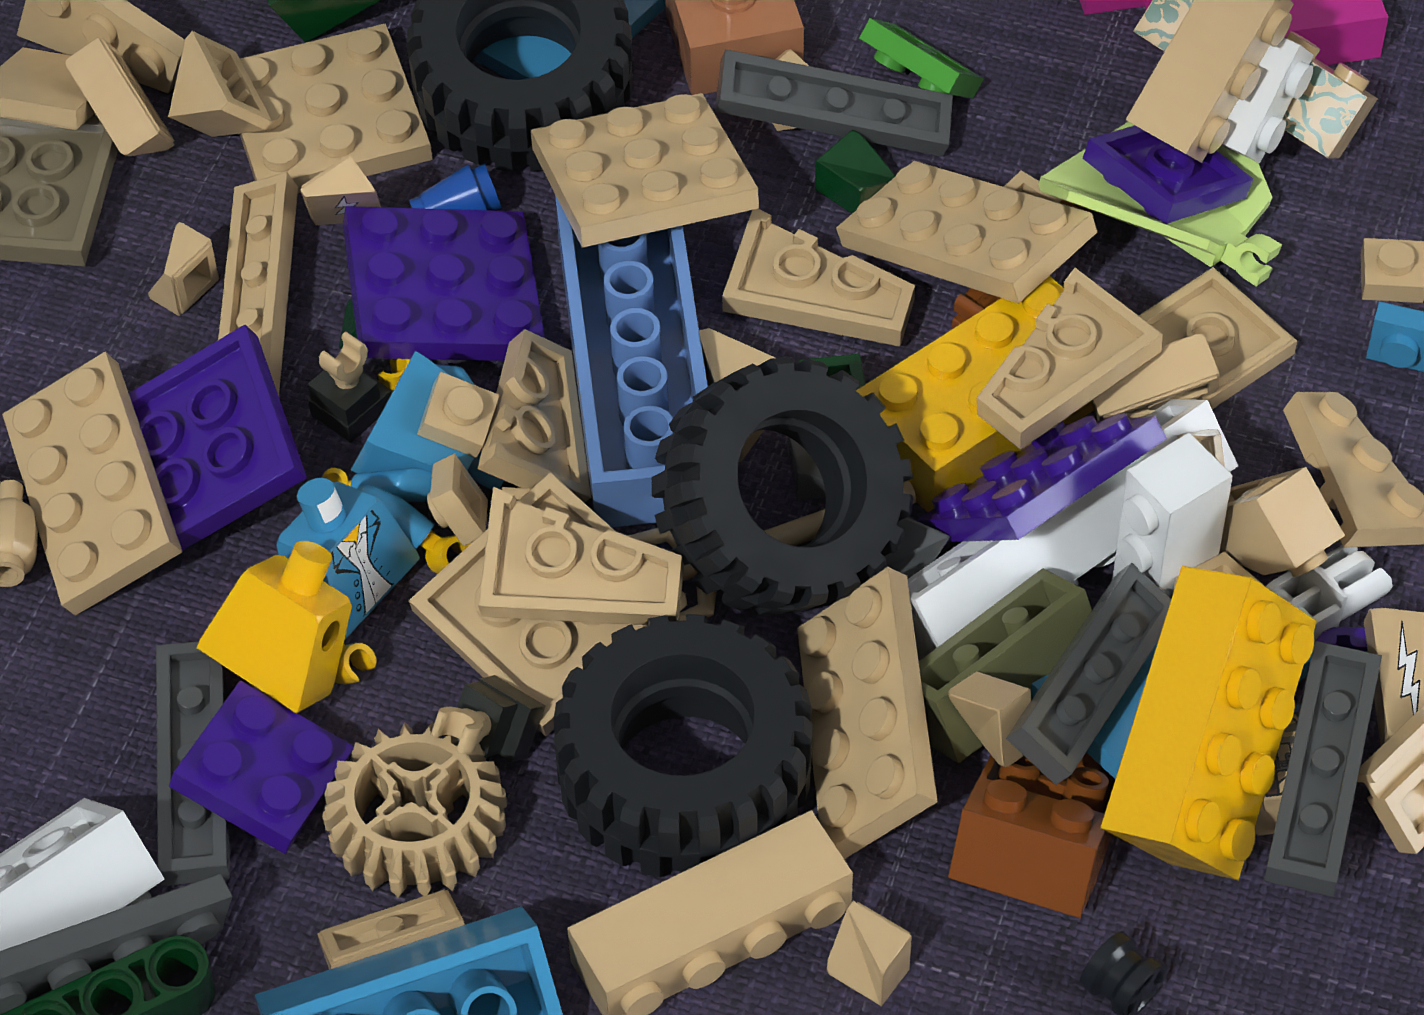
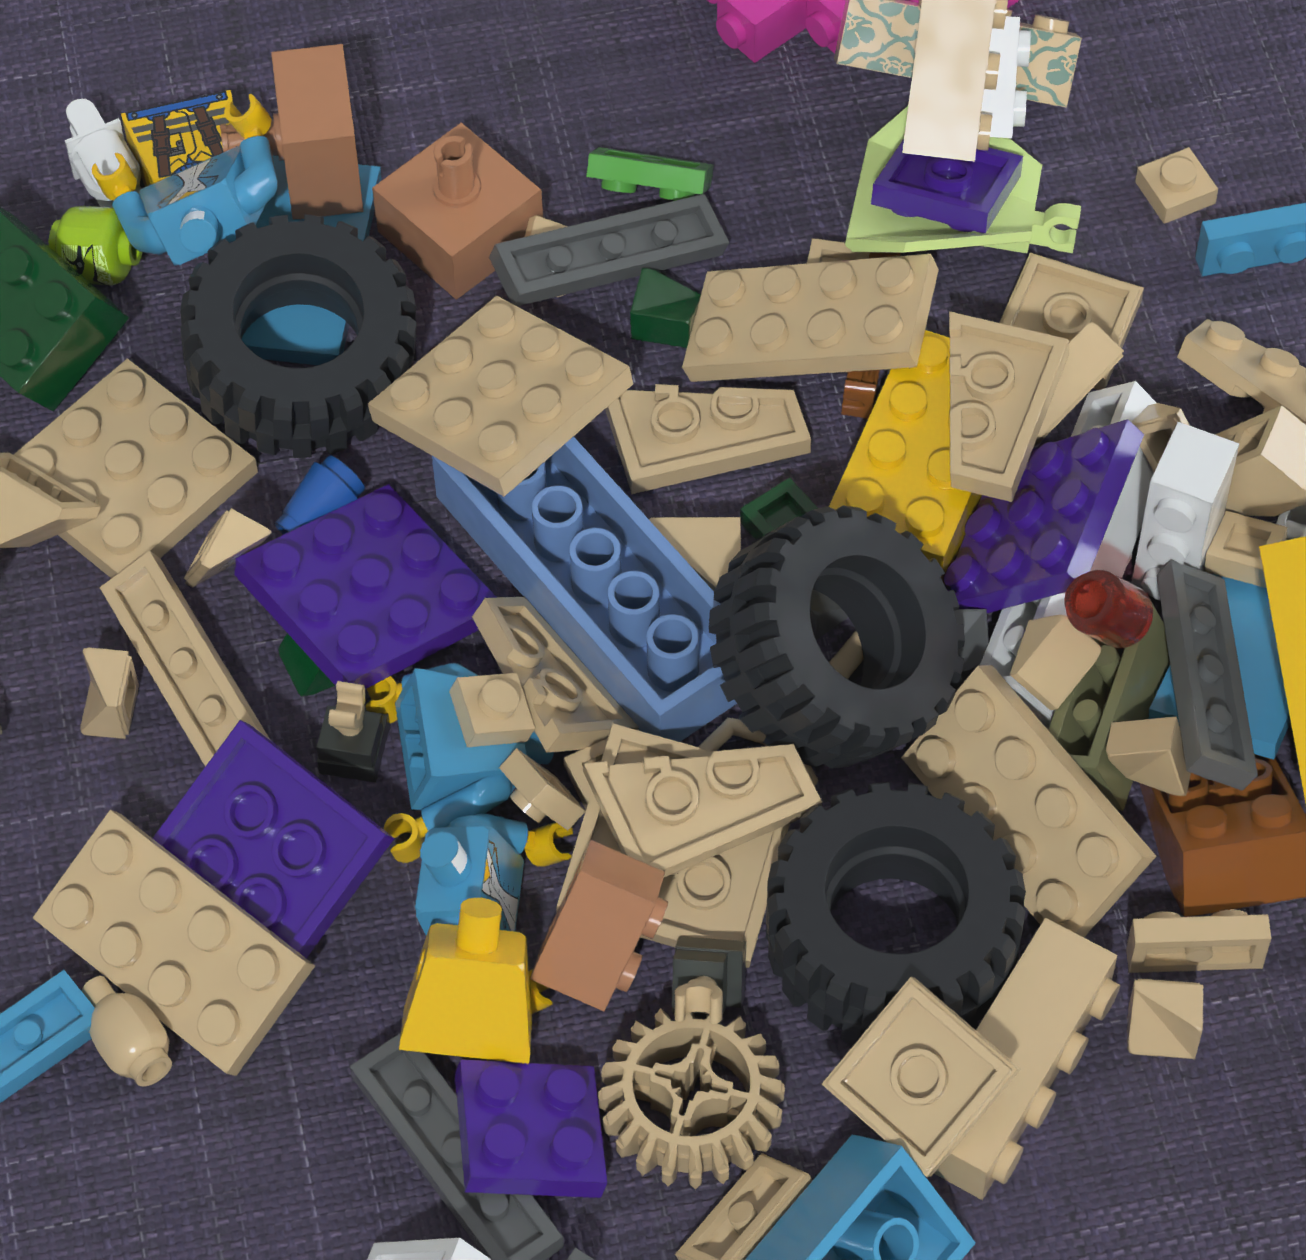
camera: 30 degrees left, 5 degrees up
(423, 627) = (599, 926): none -> nougat brick
(596, 879) = (921, 1076): none -> tan tile
(943, 905) = (1211, 942): none -> tan plate
(960, 594) = (1053, 659): none -> tan slope
(1027, 566) = (1108, 608): none -> clear red brick

